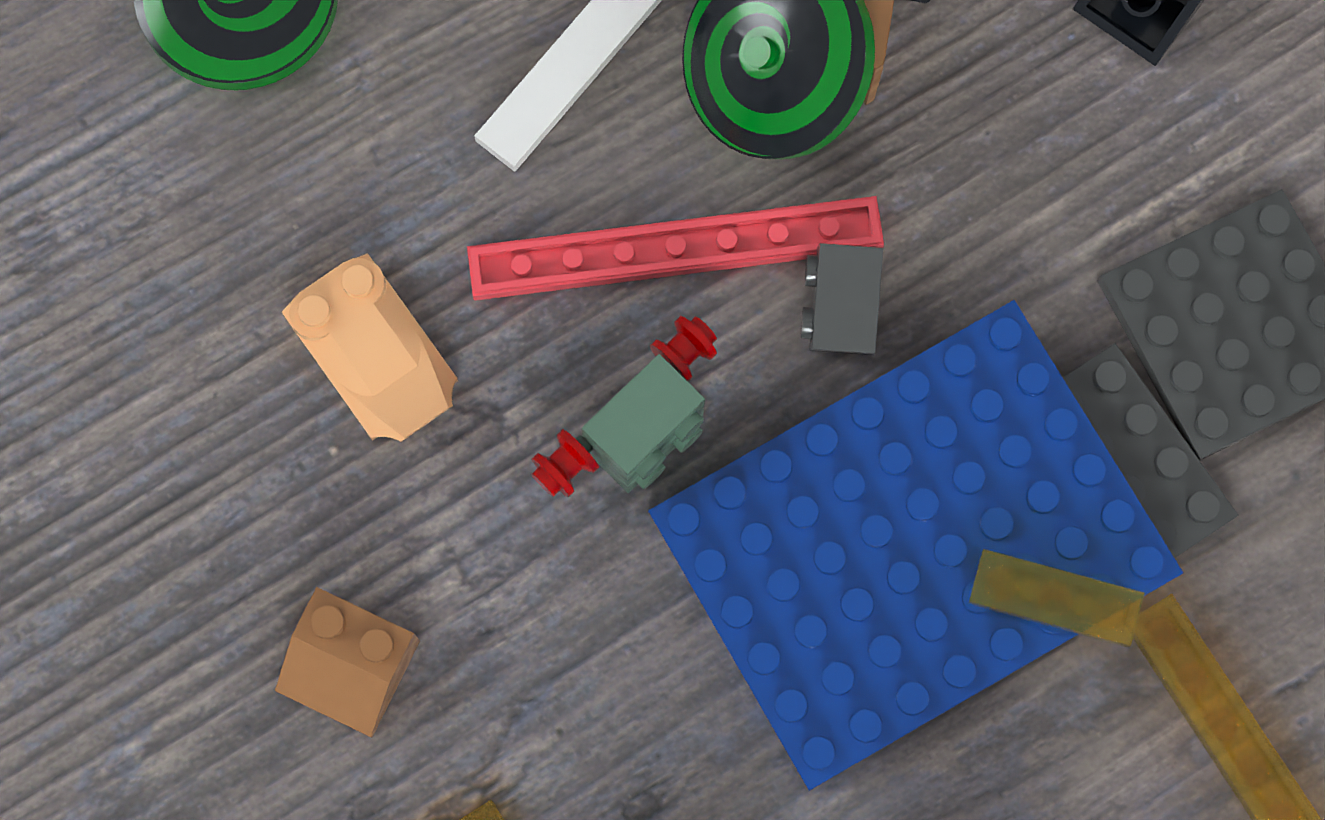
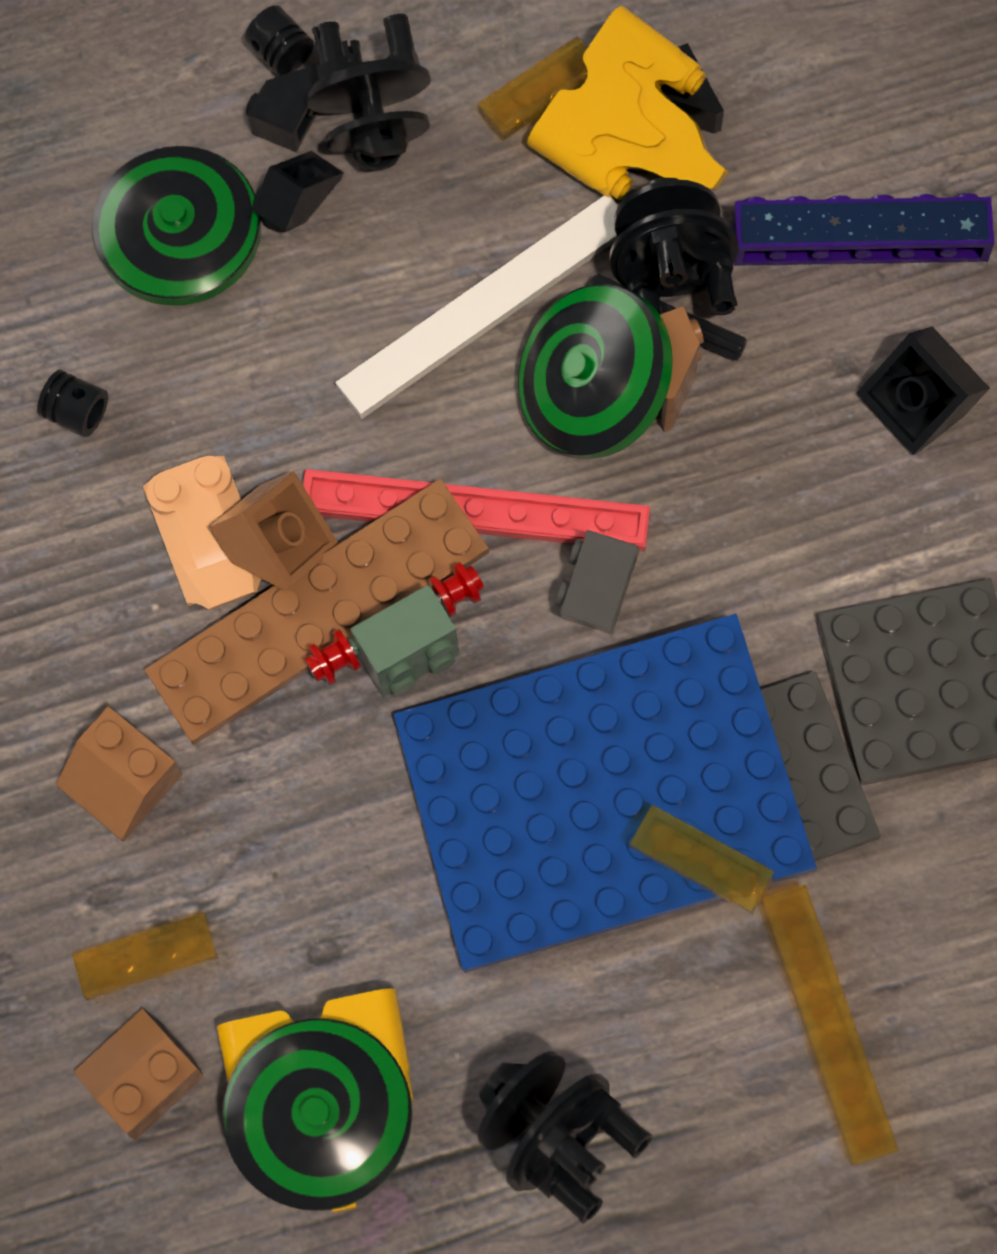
camera: 20 degrees right, 5 degrees down
(172, 233) = (72, 403): none -> black piece
(456, 331) = (275, 532): none -> medium nougat slope
(547, 383) = (269, 637): none -> medium nougat plate

